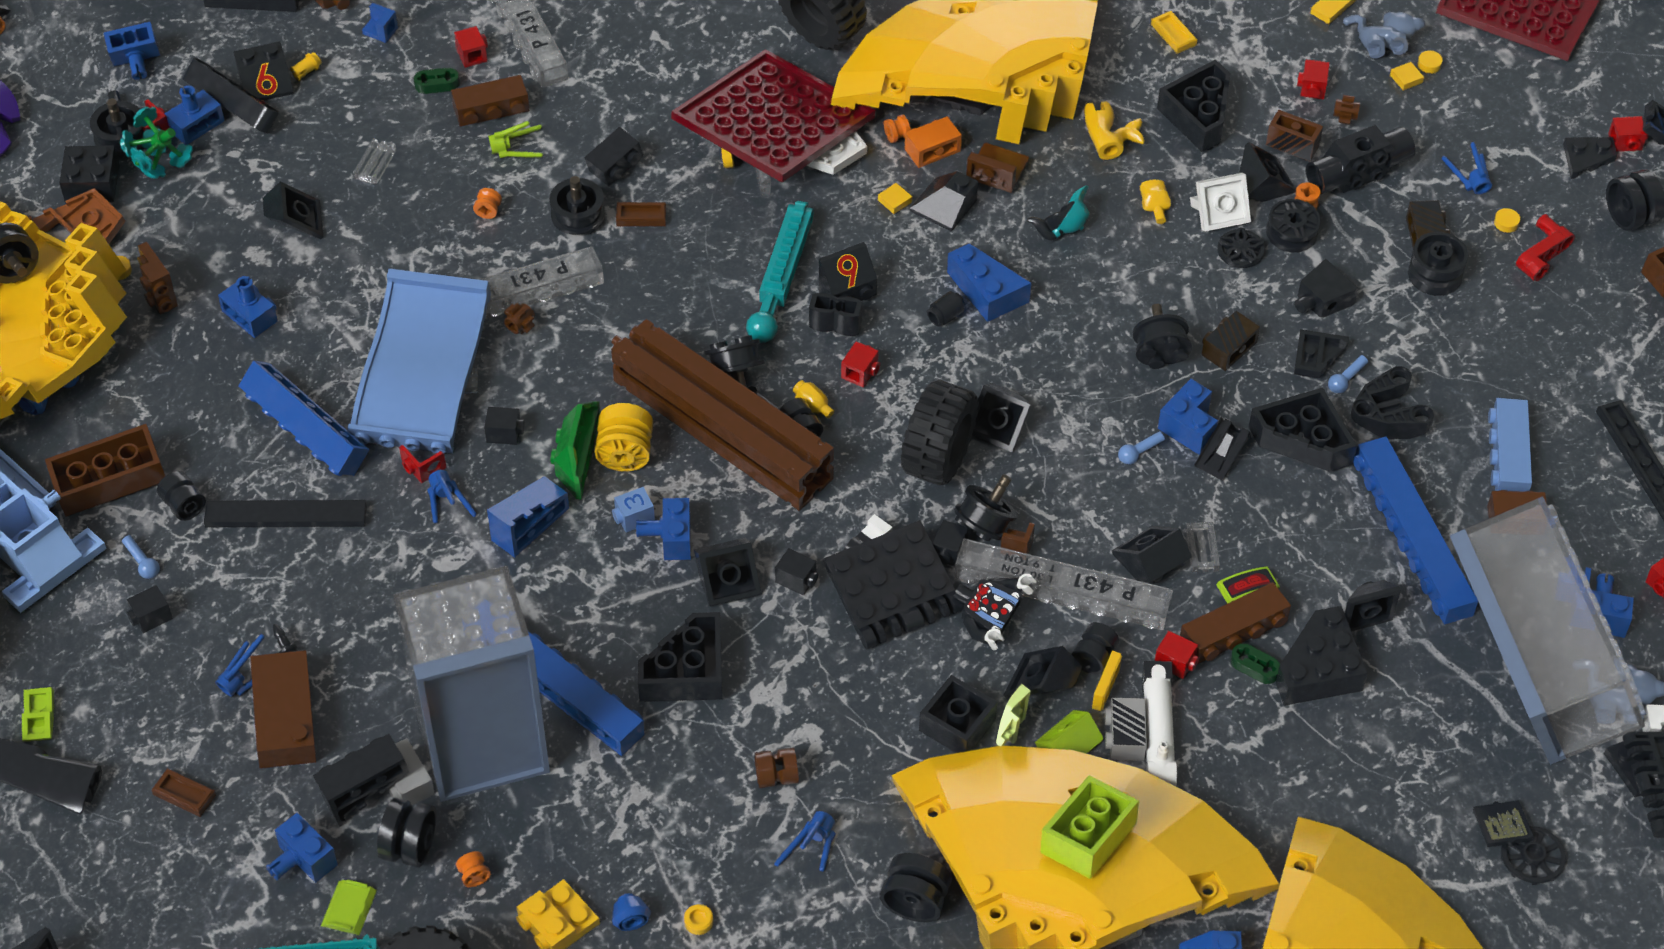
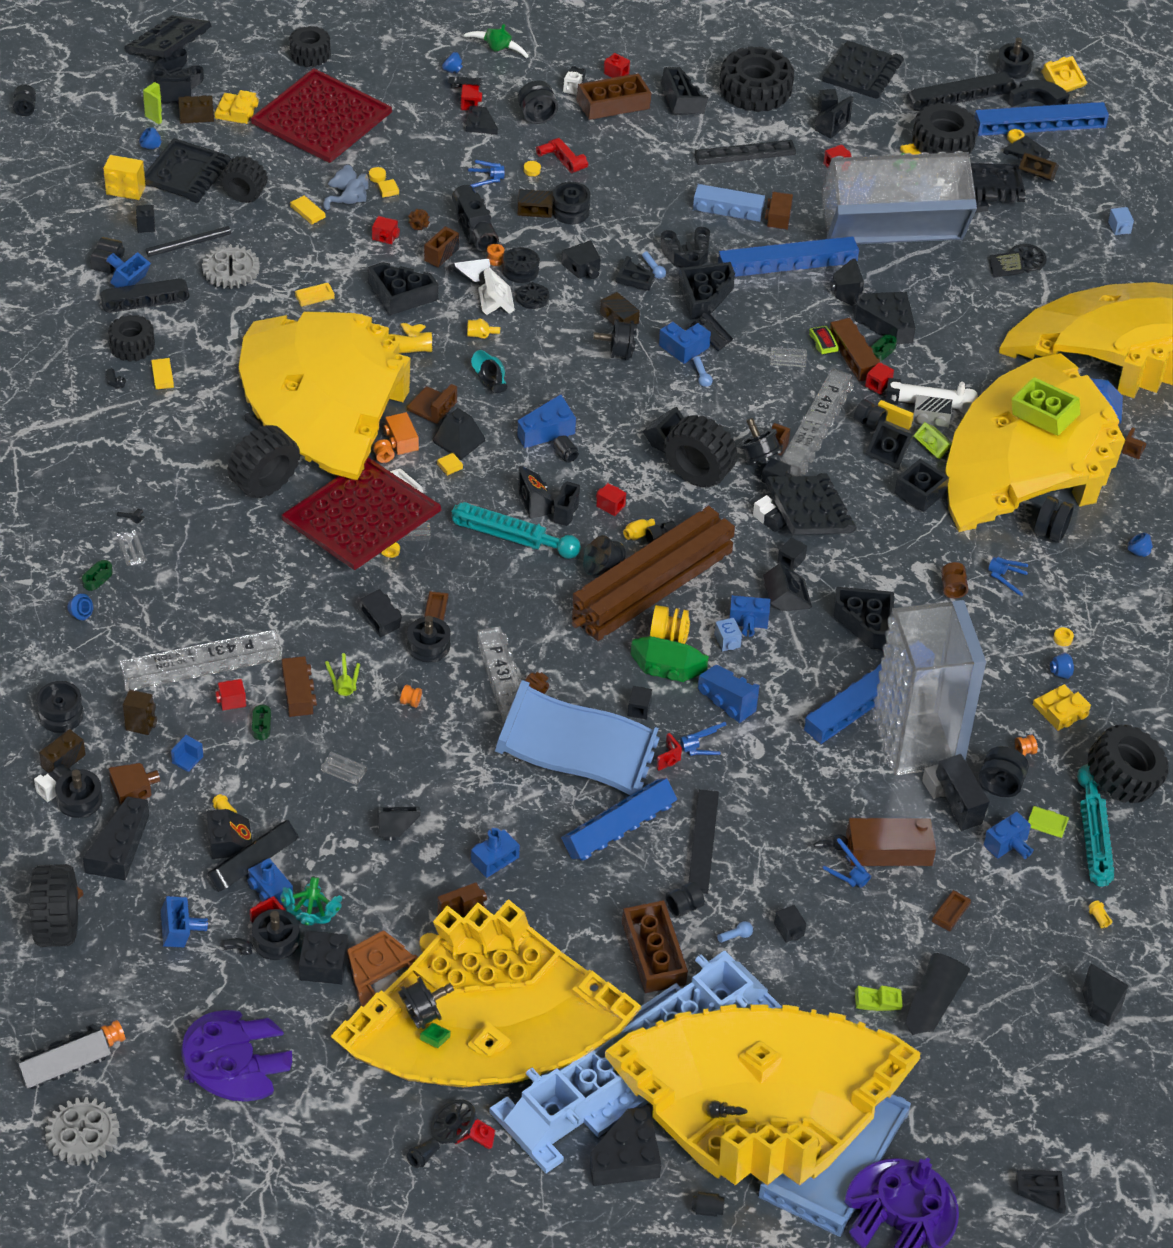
camera: 85 degrees left, 5 degrees down
(991, 606) = (837, 457): torso -> none
(1013, 716) = (926, 452): yellowish green slope -> none
(1153, 553) = (794, 377): black slope -> none

